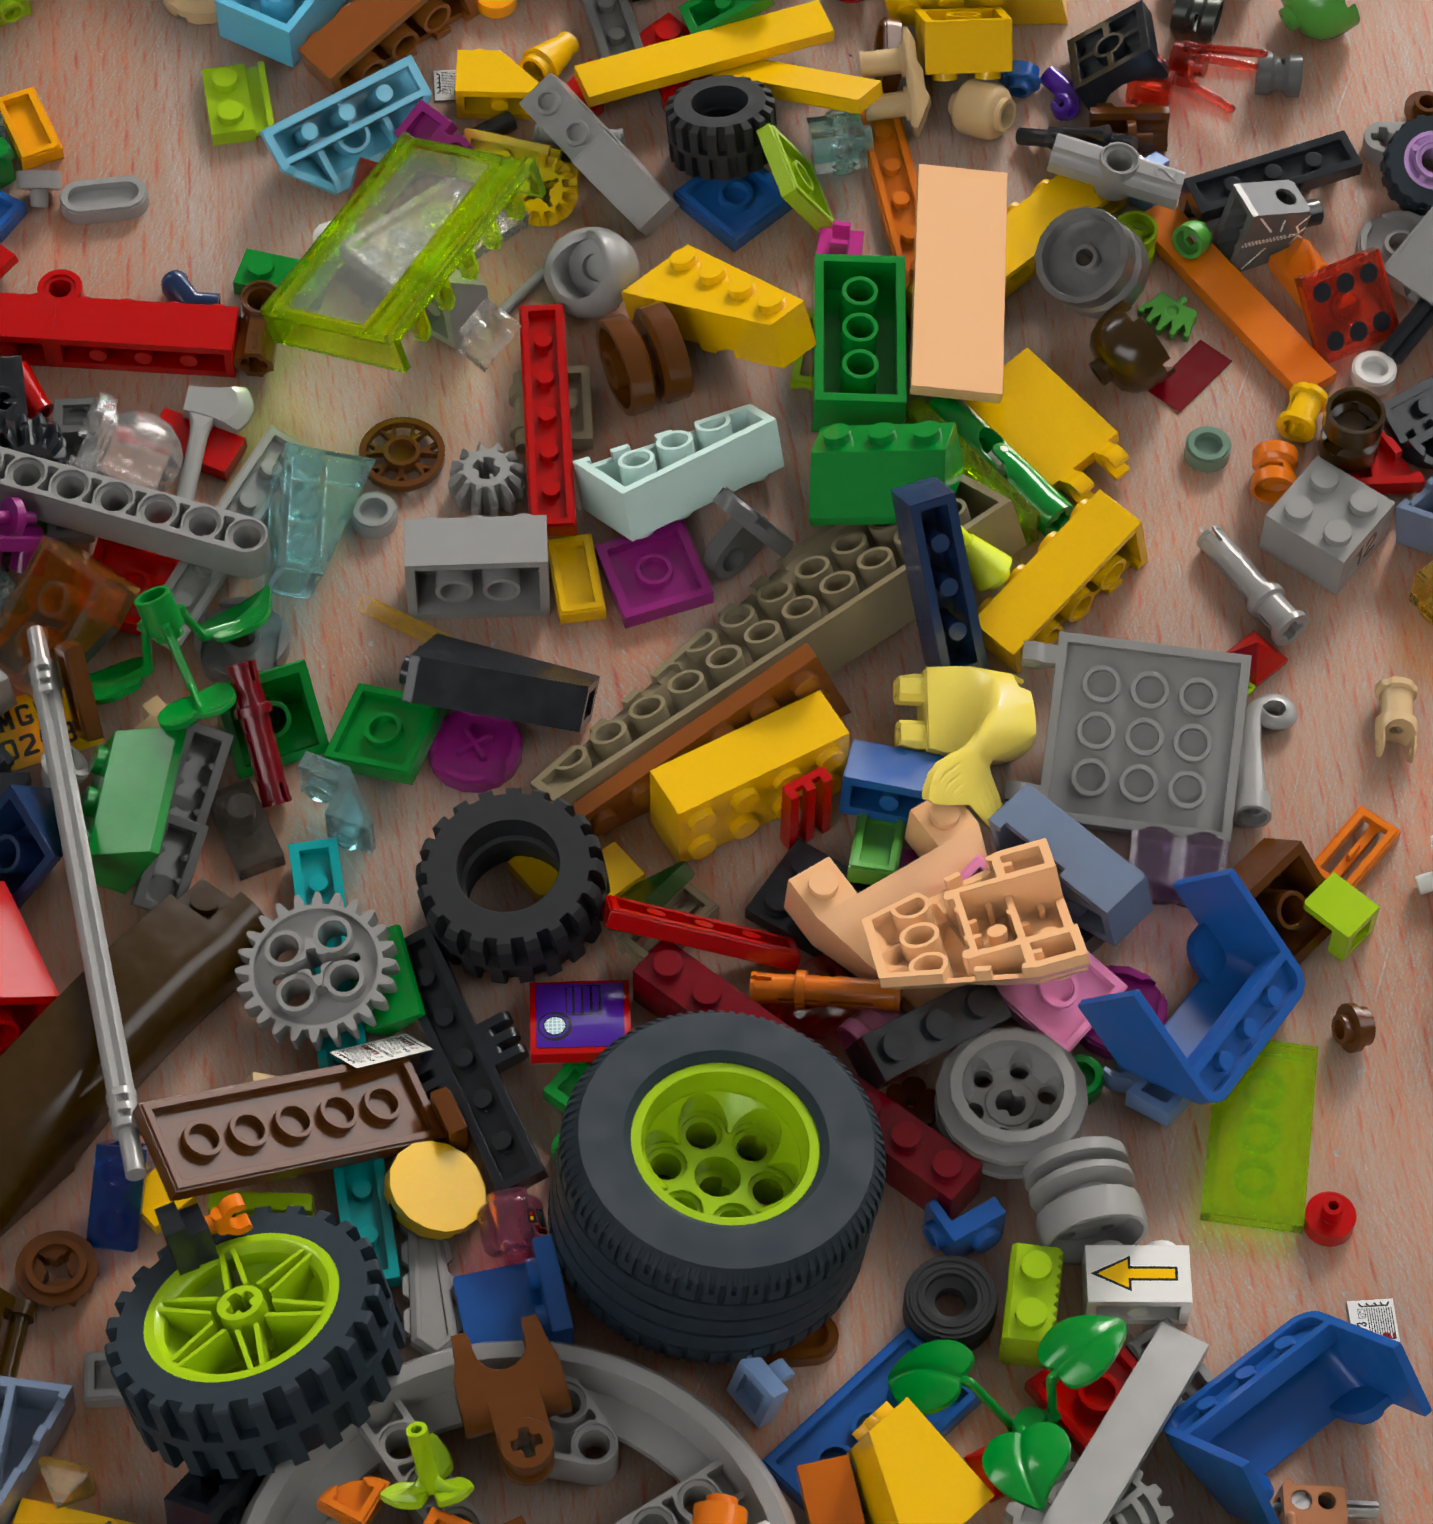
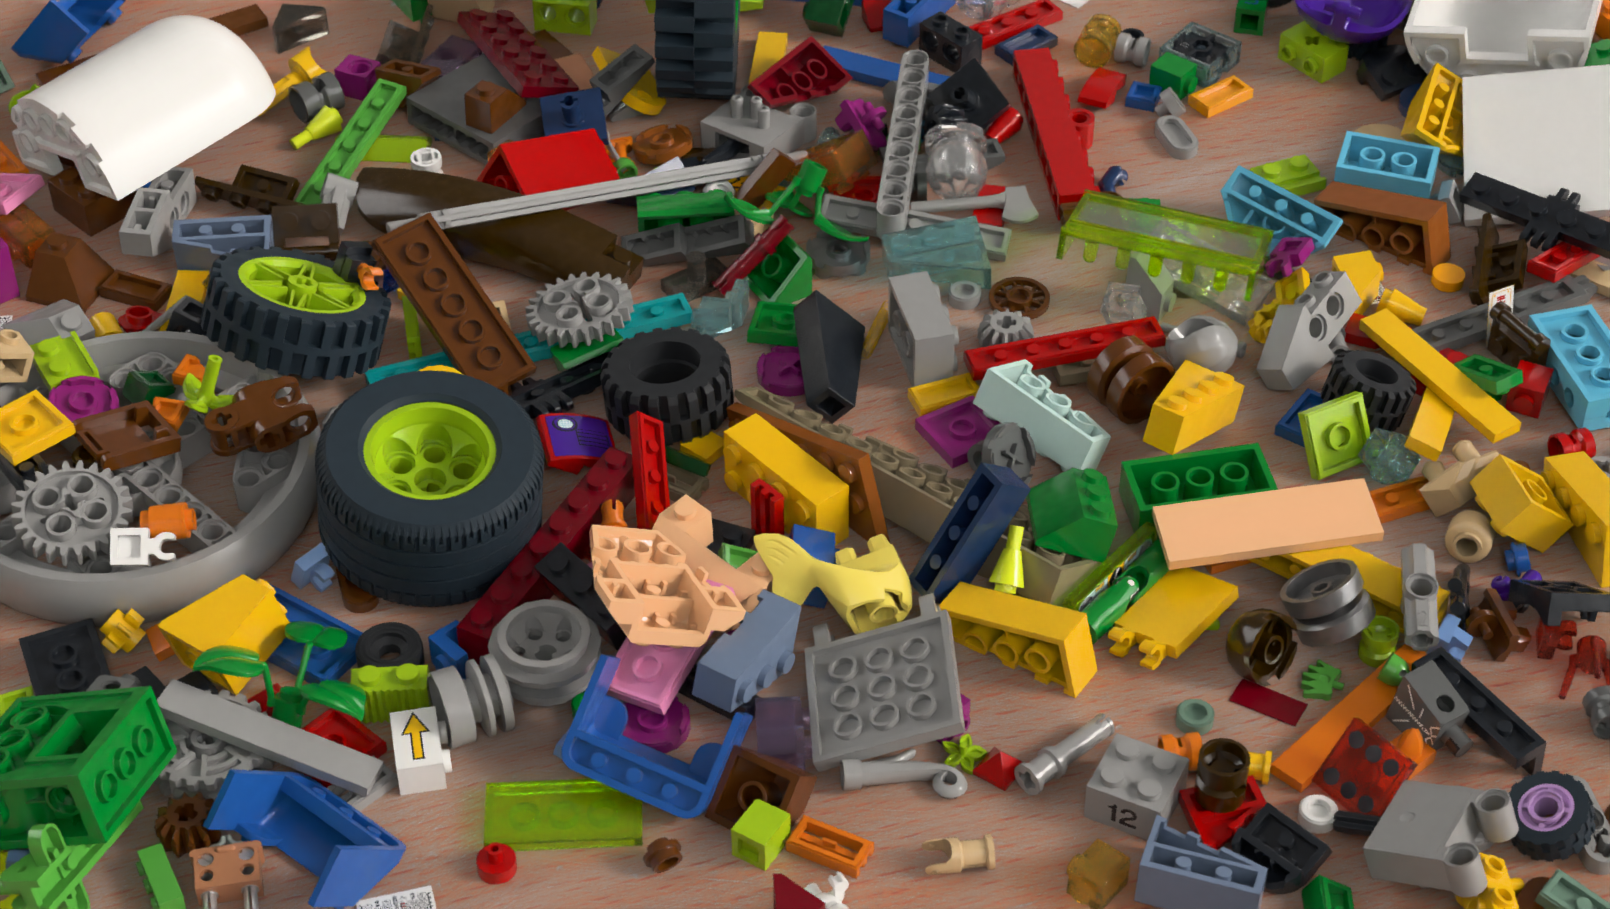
camera: 80 degrees right, 15 degrees down
(381, 1051) = (531, 352): white sticker -> none
(840, 239) = (1294, 477): dark pink tile -> none

